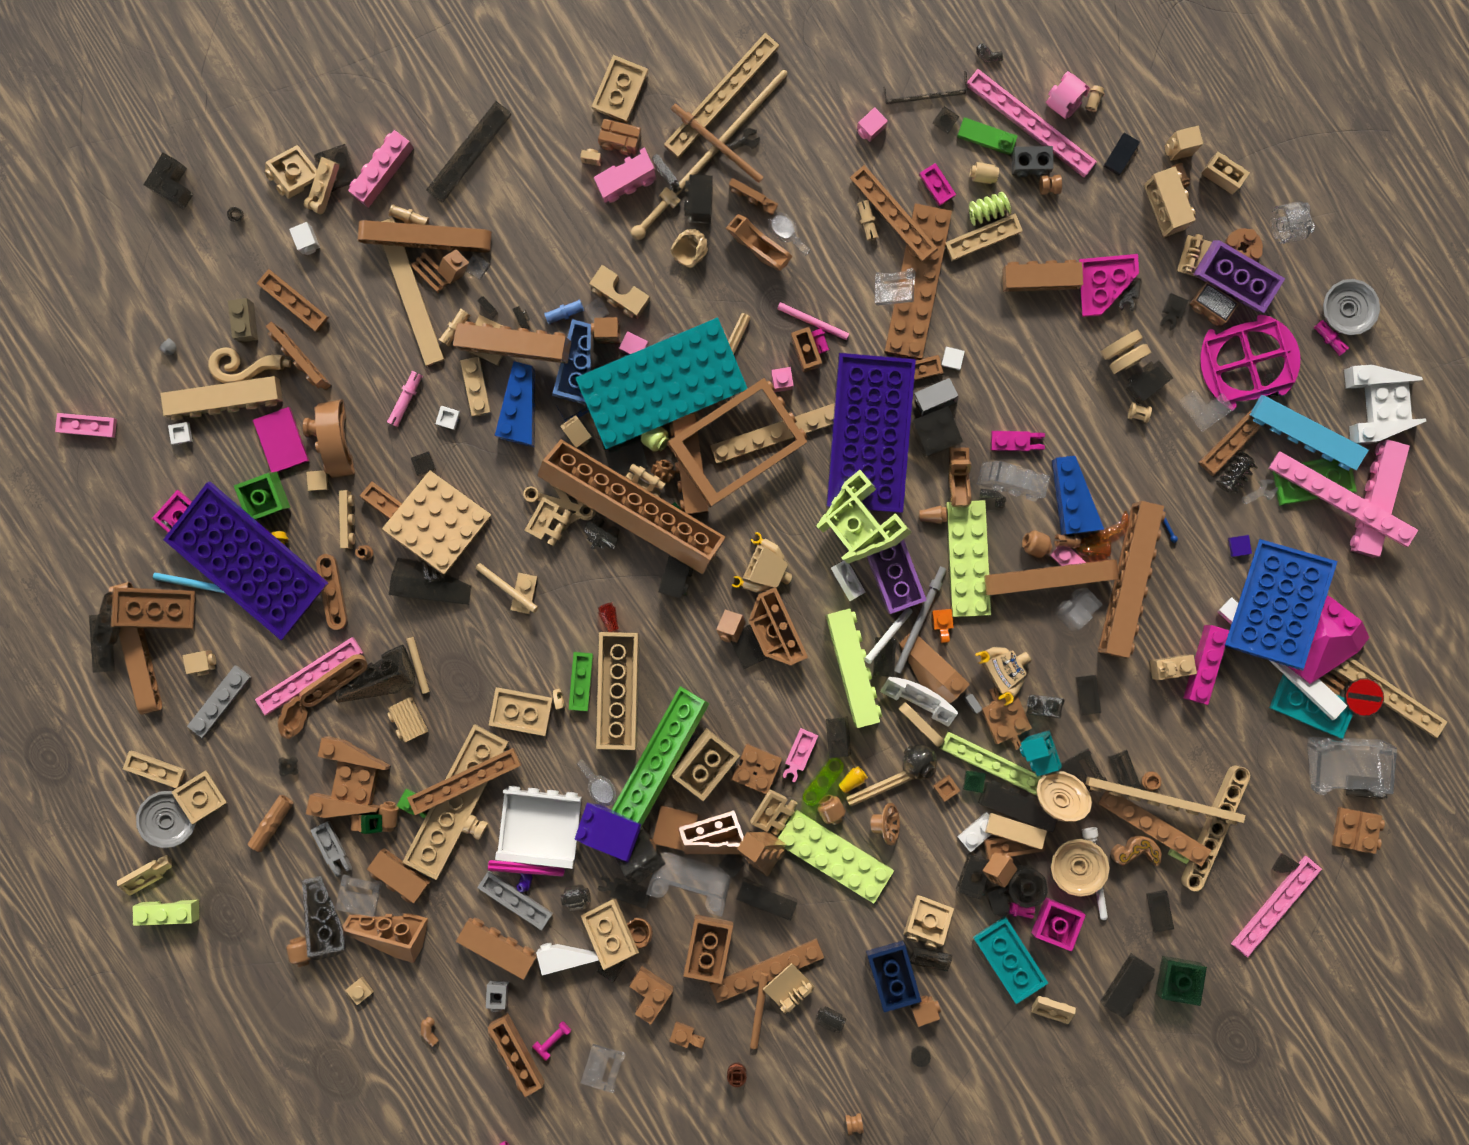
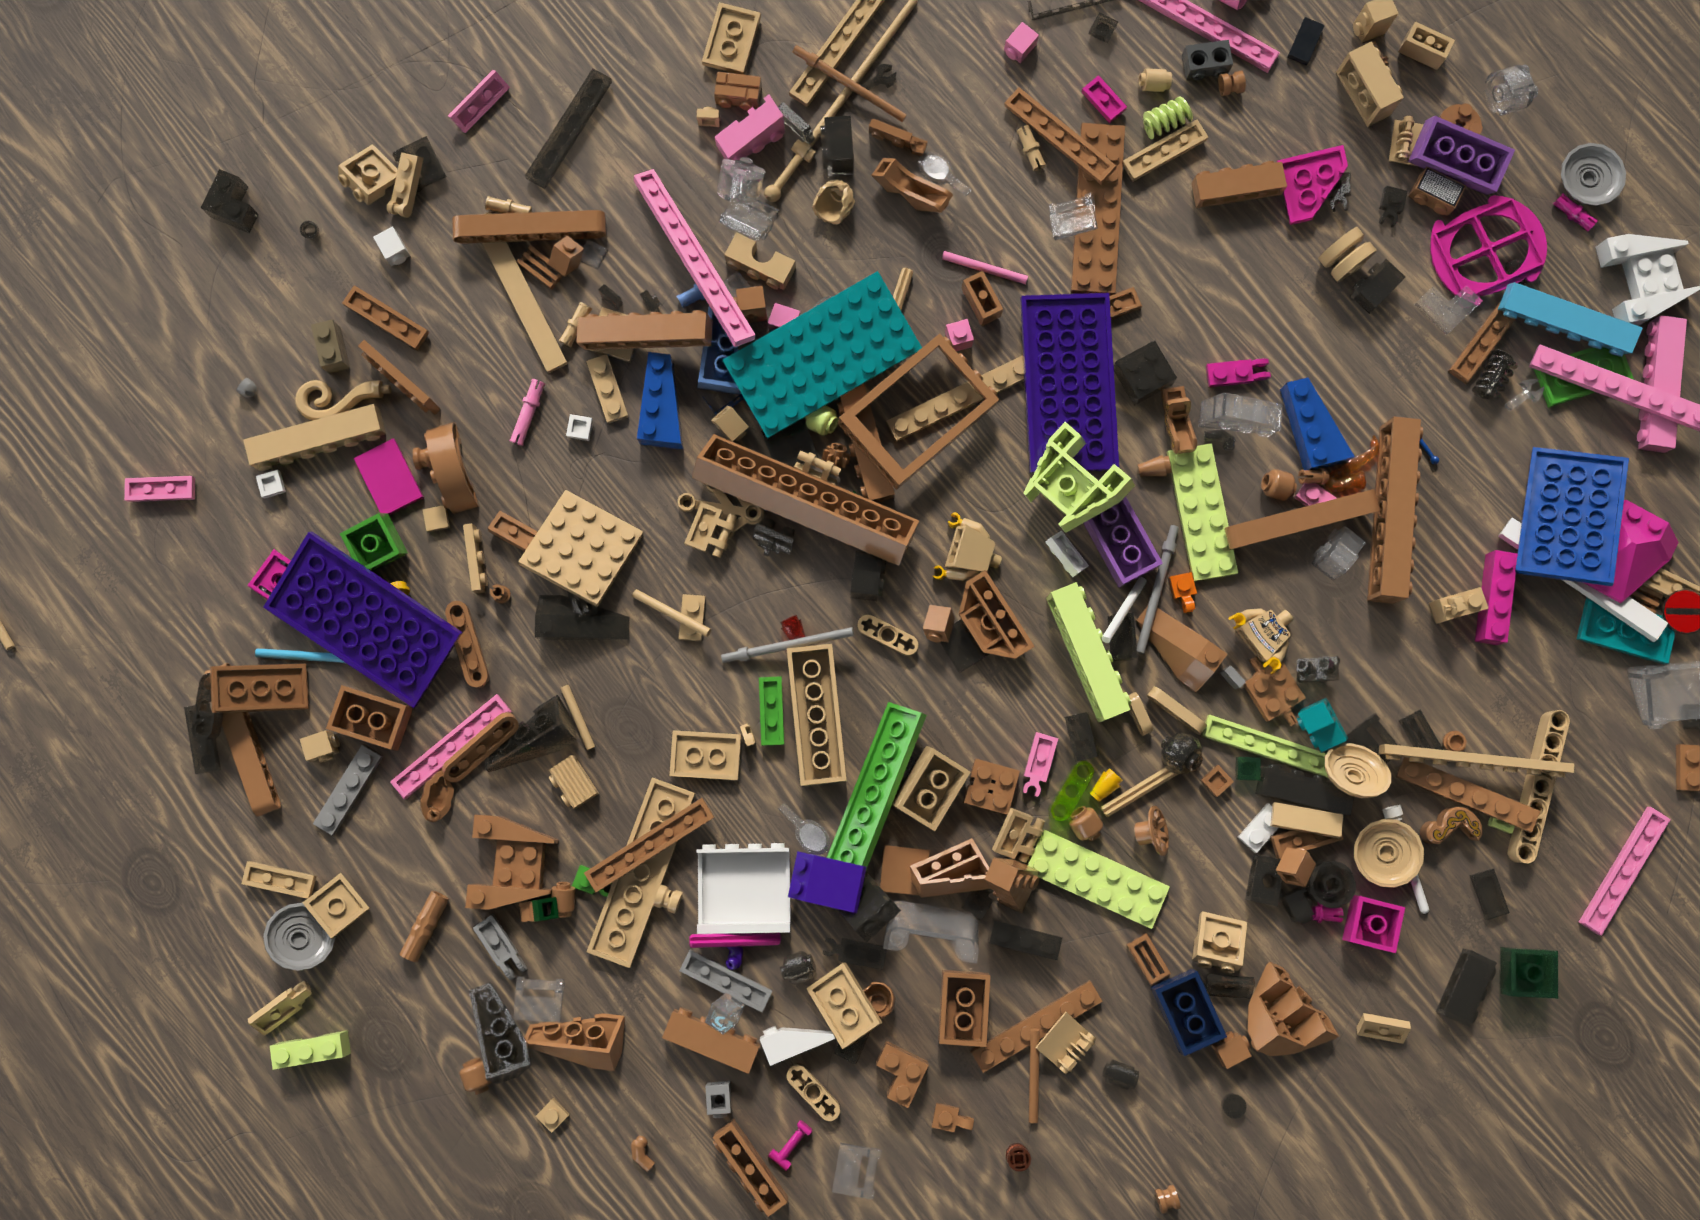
camera: 10 degrees left, 5 degrees down
(243, 644) = (369, 718): none -> medium nougat brick
(283, 762) = (433, 851): clear smoke plate -> none
(381, 168) = (470, 158): bright pink brick -> none
(394, 117) = (479, 101): none -> bright pink plate
(398, 876) = (583, 969): medium nougat brick -> none
(423, 463) = (557, 483): clear smoke tile -> none
(510, 928) = (724, 1013): none -> clear brick
(562, 283) = (694, 258): none -> bright pink plate
(565, 630) = (745, 653): none -> light grey bar
(588, 1008) = (803, 1092): none -> tan beam
(611, 220) = (740, 180): none -> clear brick
(615, 251) = (752, 219): none -> clear brick
(696, 641) = (869, 633): none -> tan beam
(820, 341) = (997, 287): dark pink pin -> none
(861, 912) = (1158, 976): none -> medium nougat tile
(889, 723) = (1140, 715): none -> tan beam
(921, 696) = (1171, 677): white slope -> none
(936, 397) = (1138, 333): light grey hinge -> none
(952, 358) = (1150, 289): white tile -> none
(972, 989) = (1282, 1017): none -> medium nougat brick
(987, 136) = (1151, 40): bright green hinge -> none
(1010, 960) = (1323, 975): teal plate -> none
(1088, 694) = (1364, 651): clear smoke tile -> none
(1139, 412) = (1379, 326): tan bush -> none
(1240, 545) = (1511, 458): dark purple tile -> none
(1284, 864) = (1626, 819): clear smoke tile -> none

